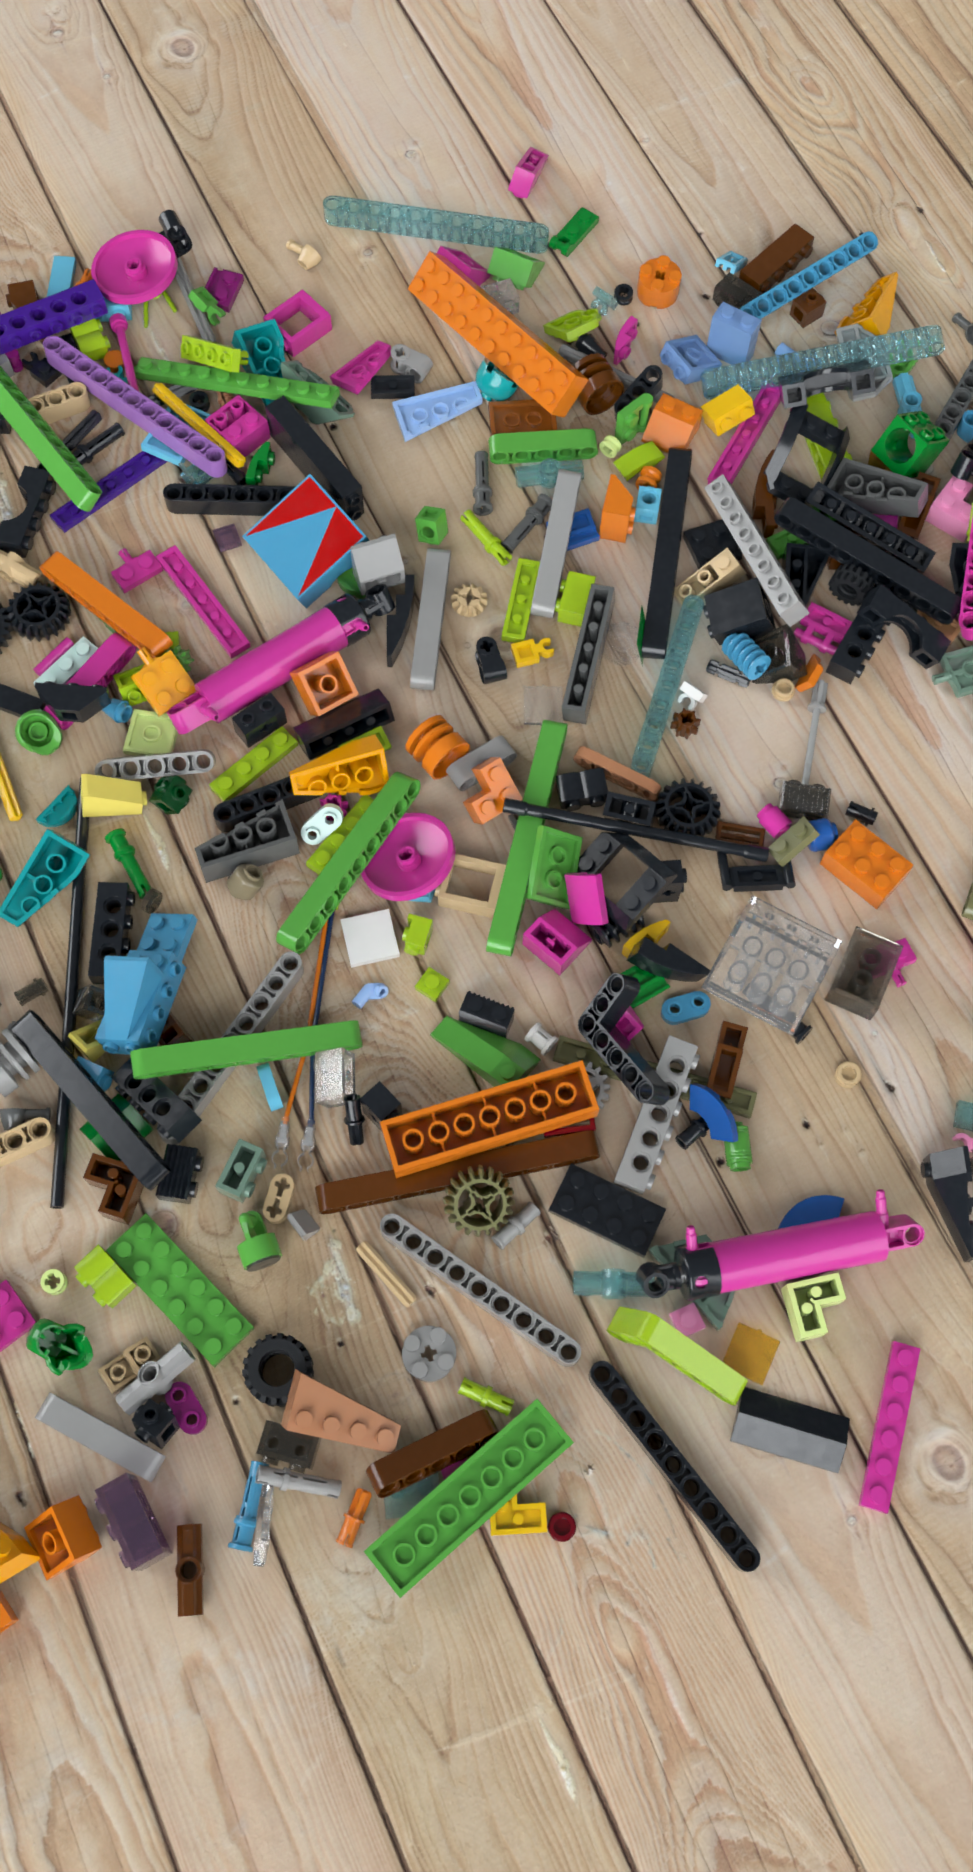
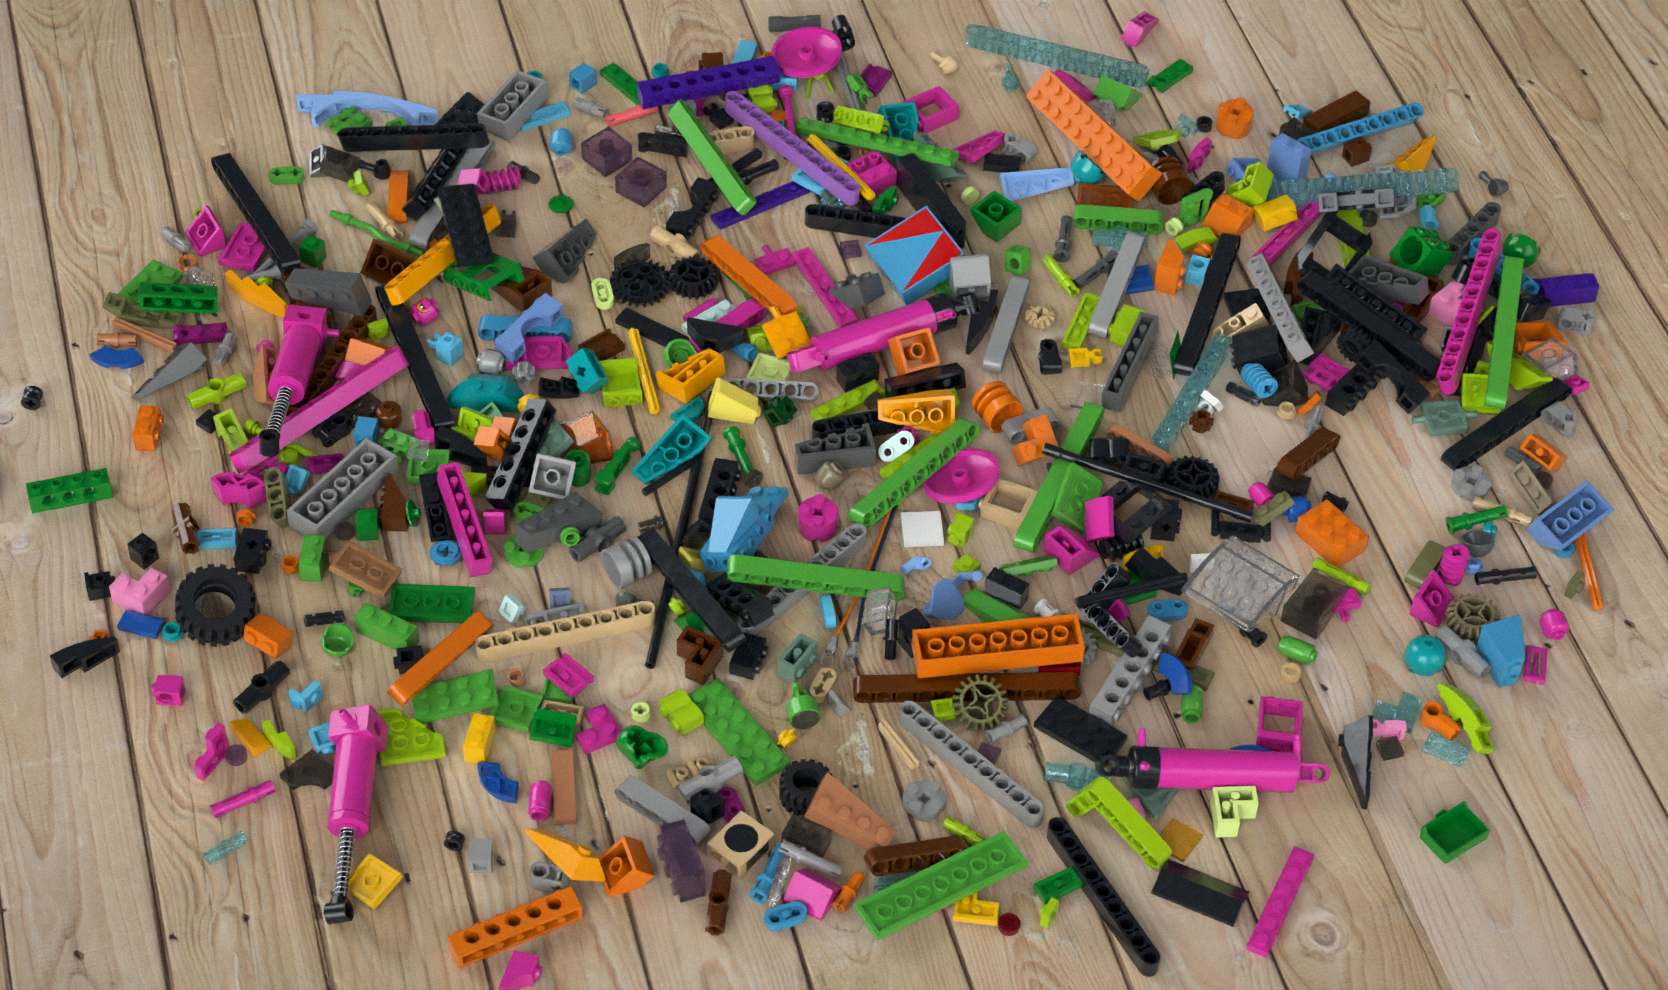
camera: 10 degrees right, 20 degrees down
(50, 907) = (666, 478): none -> black bar
(55, 761) = (693, 376): none -> light orange wedge
(76, 1116) = (677, 606): none -> lime plate
(116, 223) = (780, 23): none -> dark grey axle
(169, 345) = (825, 112): none -> black wheel
(207, 1471) = (741, 844): none -> tan brick
(227, 948) = (818, 518): none -> dark pink brick
(244, 601) = (859, 290): none -> dark grey slope
(244, 1292) = (786, 738): none -> yellow plate
(279, 1573) = (784, 916): none -> dark azure plate
(284, 758) = (871, 401): none -> clear smoke tile
(309, 1525) = (813, 891): none -> slope
(361, 439) = (970, 195): none -> yellowish green tile
(385, 269) = (1009, 82): none -> clear light blue plate
(396, 465) = (996, 215): none -> green slope
(415, 1045) = (945, 599): none -> medium blue piece
(433, 1211) = (942, 709): none -> lime plate
(498, 1267) = (989, 752): none -> clear purple tile
(507, 975) = (1026, 567): none -> bright green plate
(608, 1504) = (1048, 912): none -> lime plate
(614, 1458) = (1058, 885): none -> green plate
(642, 1003) = (1131, 590): none -> black axle
(699, 379) = (1254, 185): none -> lime brick
(715, 932) = (1196, 560): none -> white tile
(821, 754) = (1308, 453): none -> reddish brown beam
(836, 398) = (1369, 218): none -> clear smoke tile
(849, 1186) = (1277, 740): none -> dark pink window
(852, 1042) = (1297, 650): none -> bright green head
(886, 922) = (1342, 576): none -> lime pin

